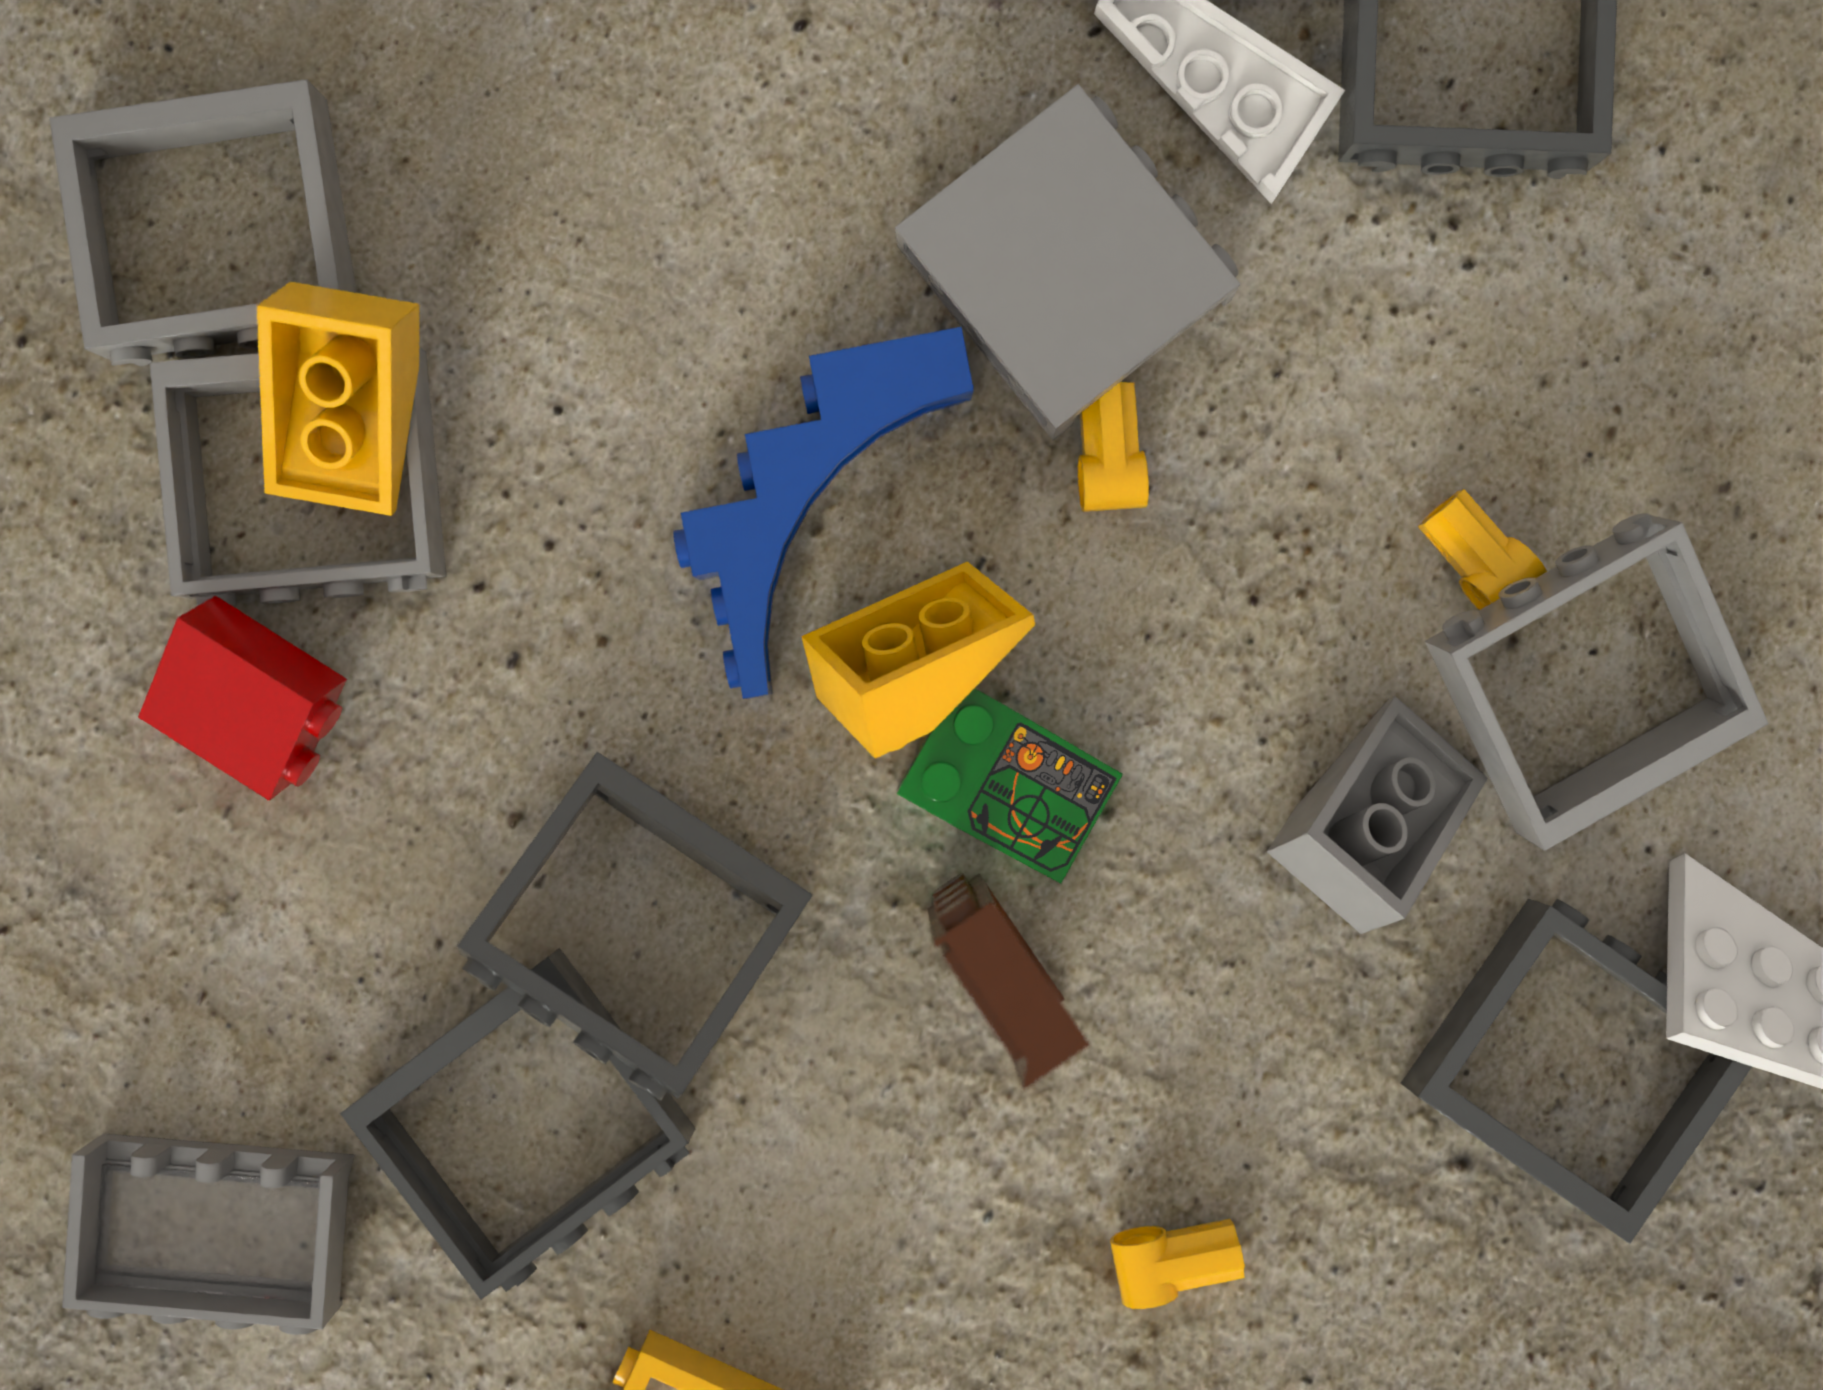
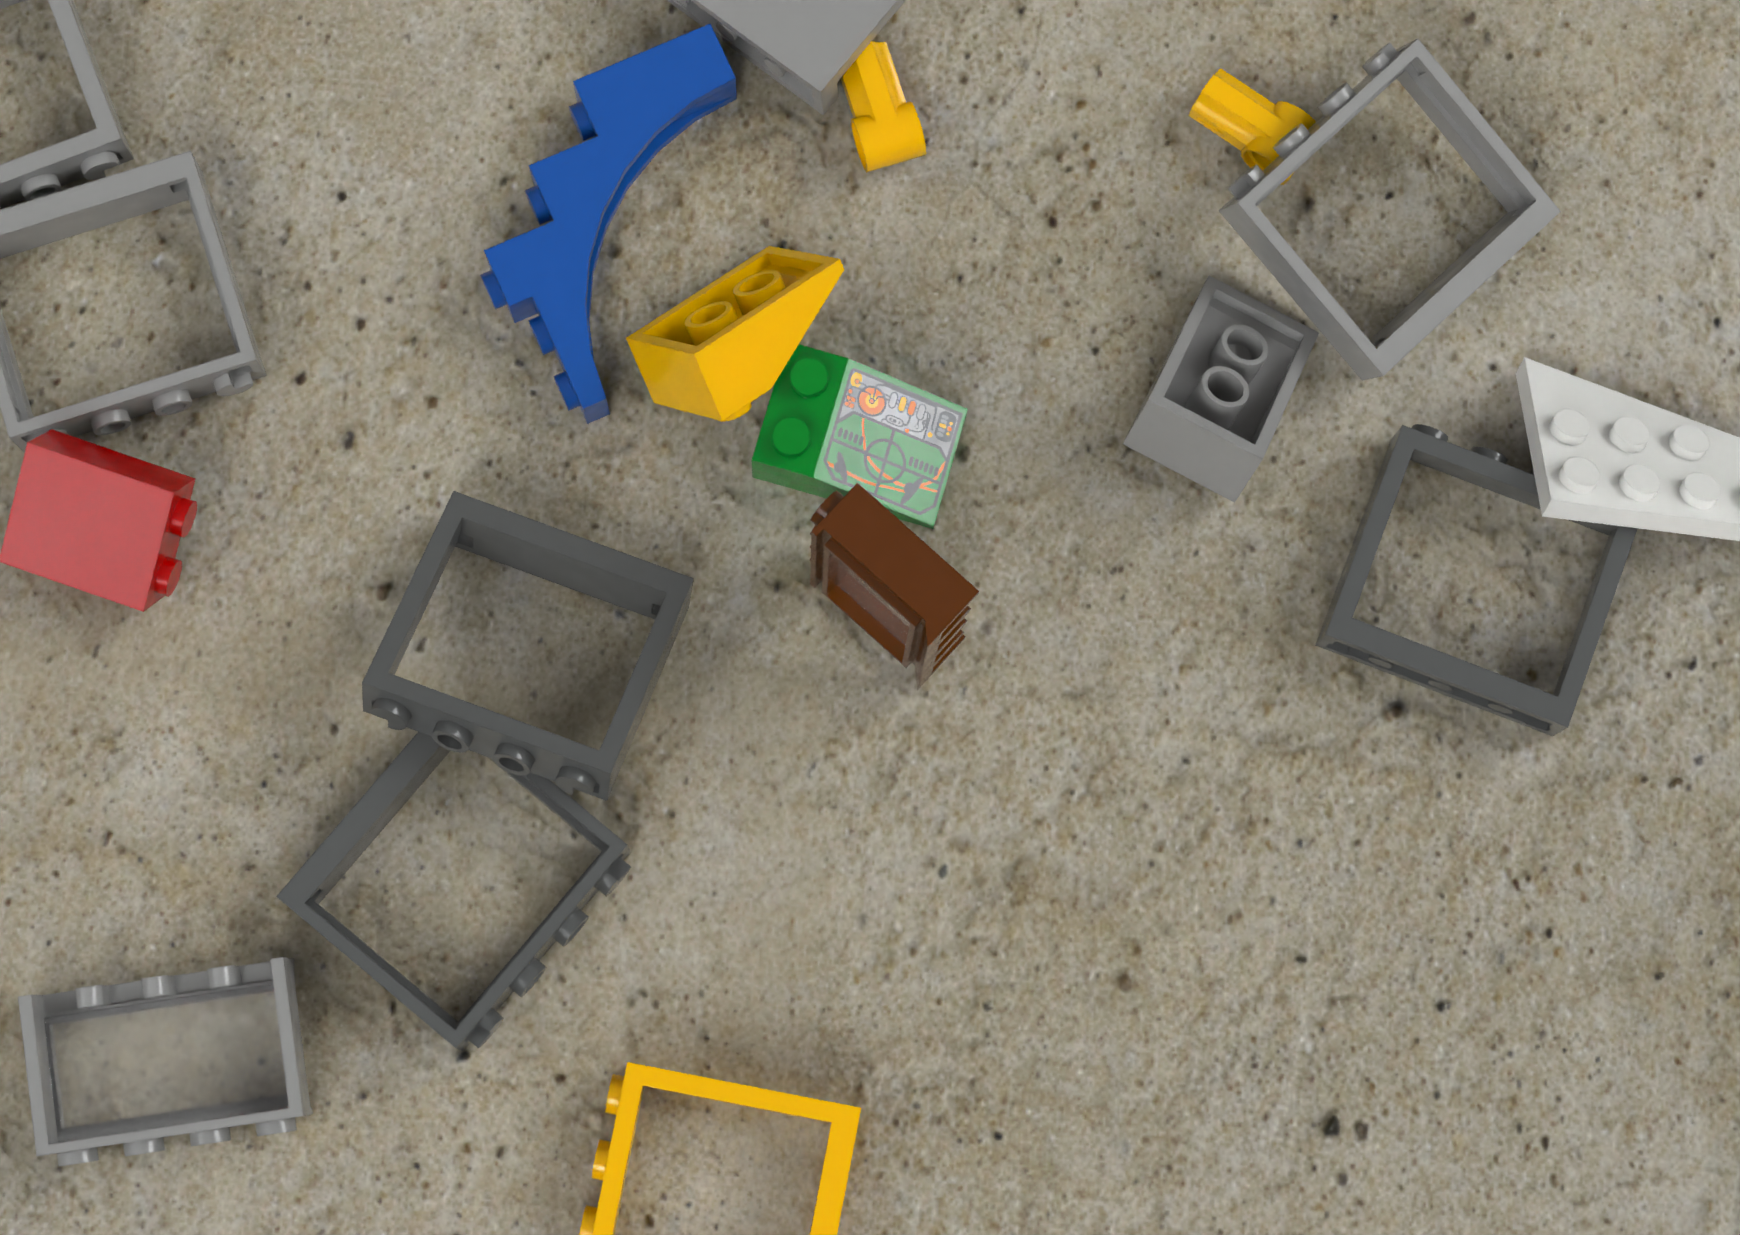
camera: 20 degrees left, 10 degrees down
(336, 395) = (136, 213): yellow slope -> none
(1159, 1262) = (1123, 866): yellow piece -> none

